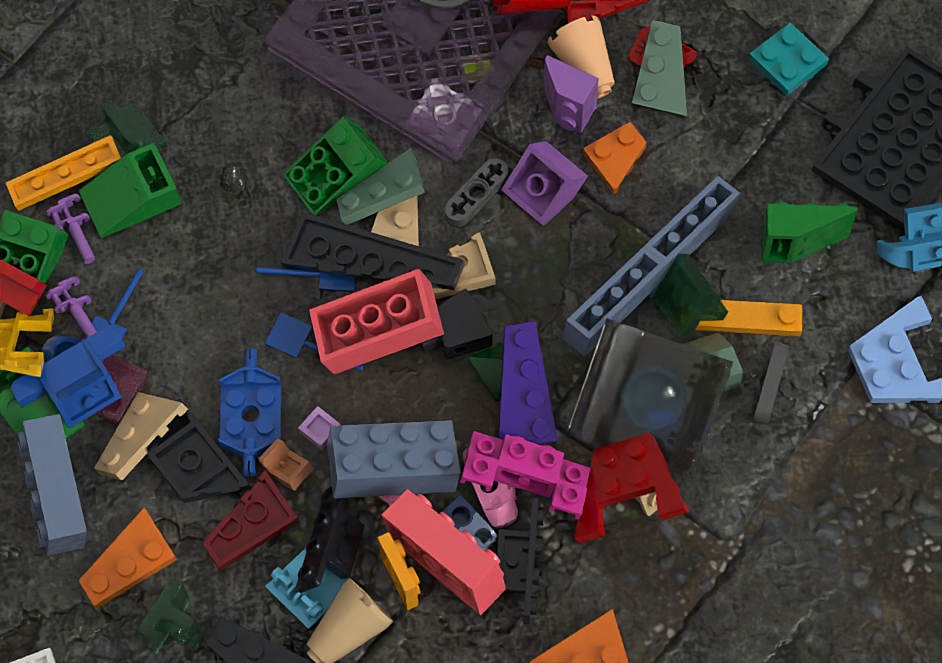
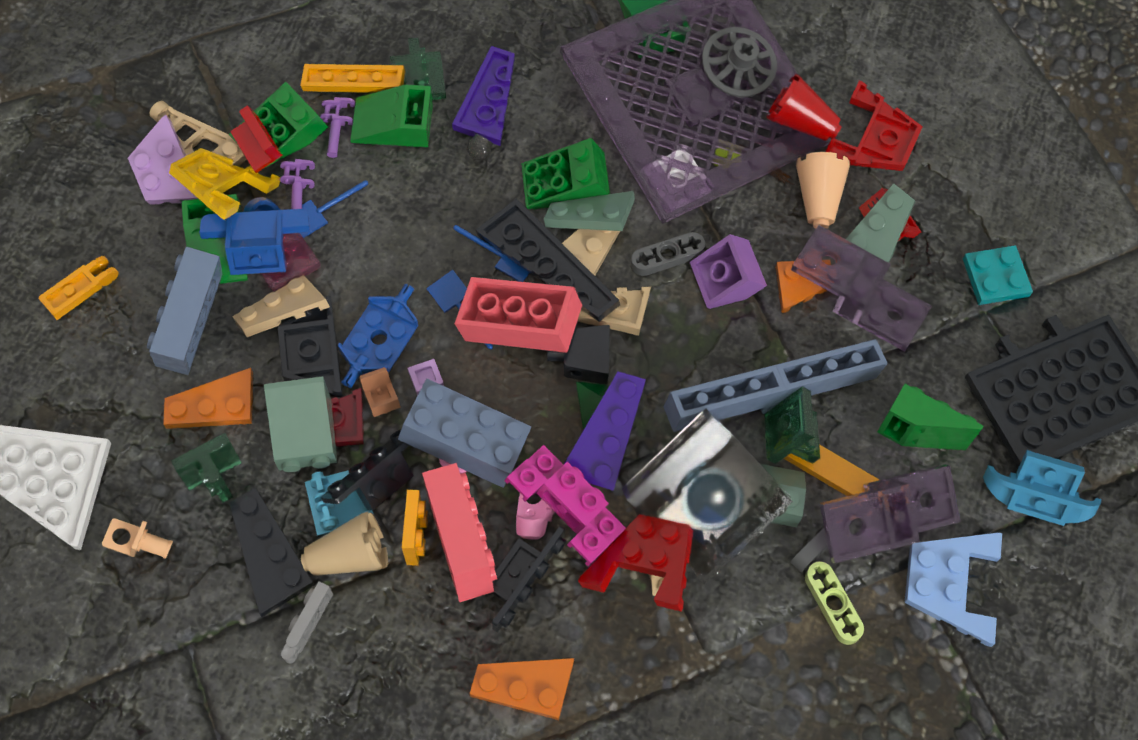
camera: 25 degrees right, 0 degrees up
(211, 127) = (487, 98): none -> dark purple wing
(236, 532) = (301, 424): none -> sand green slope
(468, 519) = (495, 521): leg -> none
(569, 94) = (791, 212): medium lavender slope -> none
(675, 134) = (861, 287): none -> clear purple bracket
(817, 328) = (889, 513): none -> clear purple bracket
(834, 439) = (851, 619): none -> yellowish green beam

